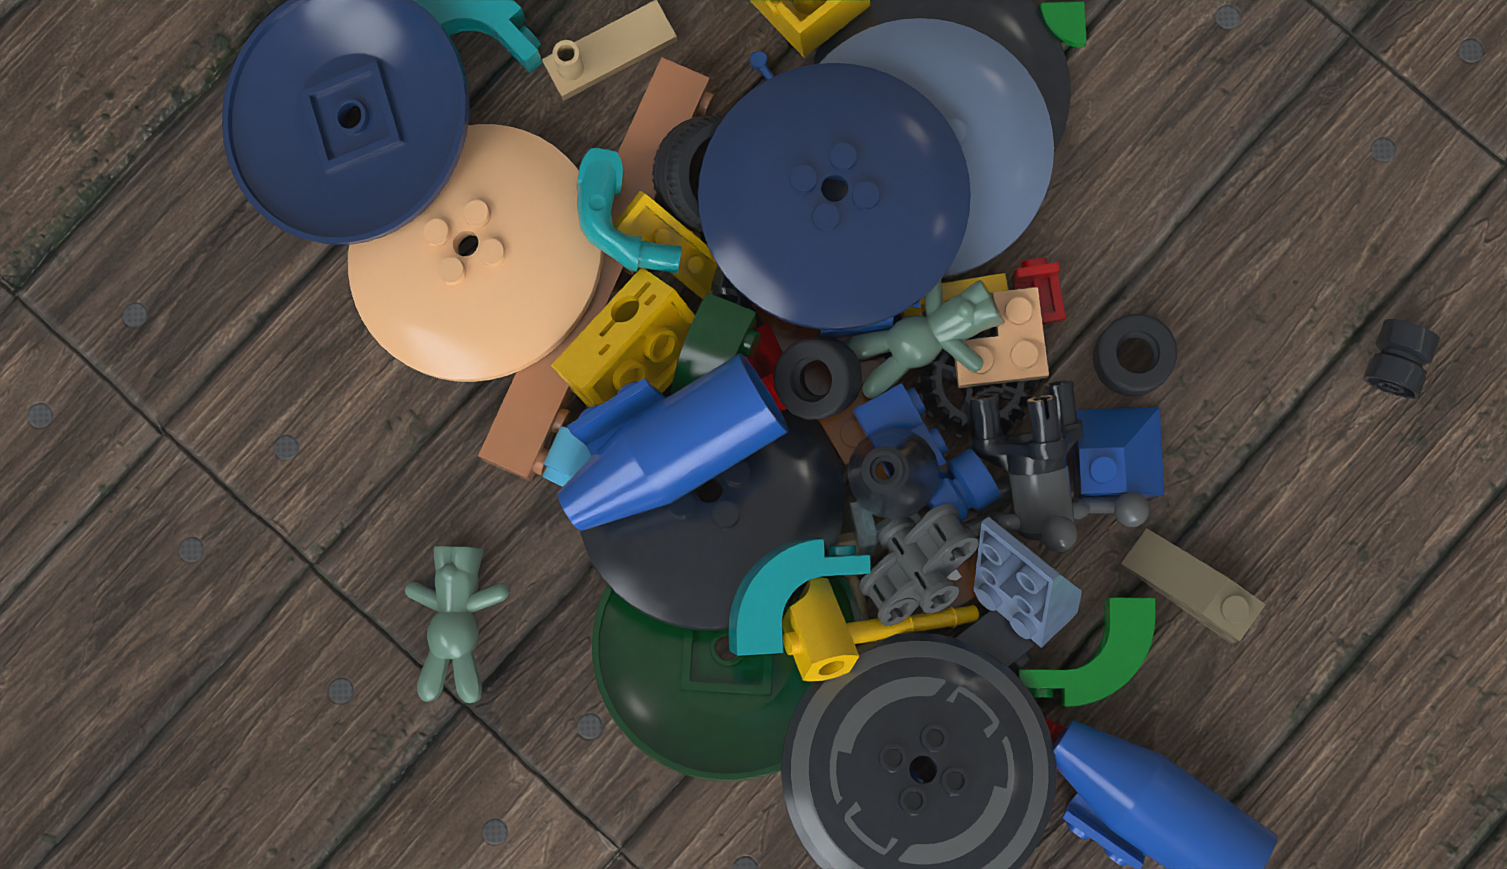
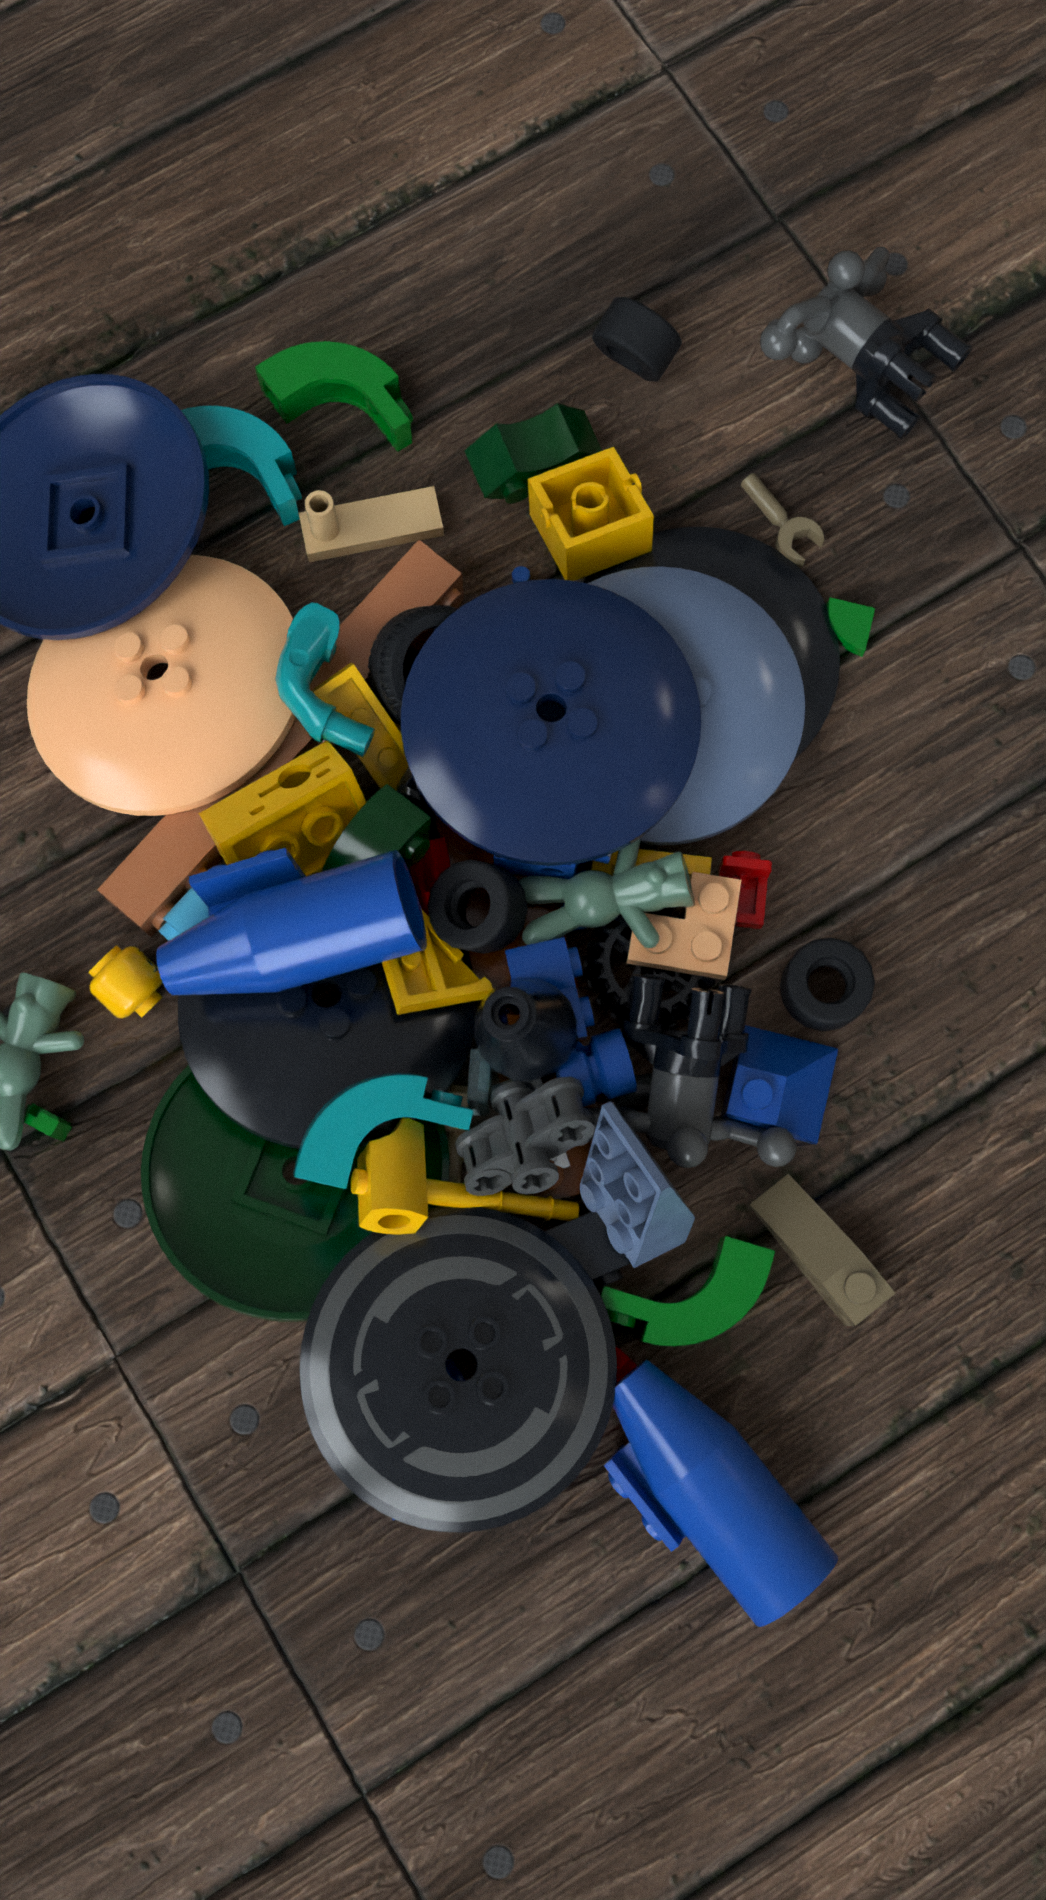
camera: 10 degrees right, 5 degrees down
(496, 668) = (46, 1122): none -> green tile
(527, 528) = (126, 982): none -> yellow head
(798, 451) = (433, 977): none -> yellow wing

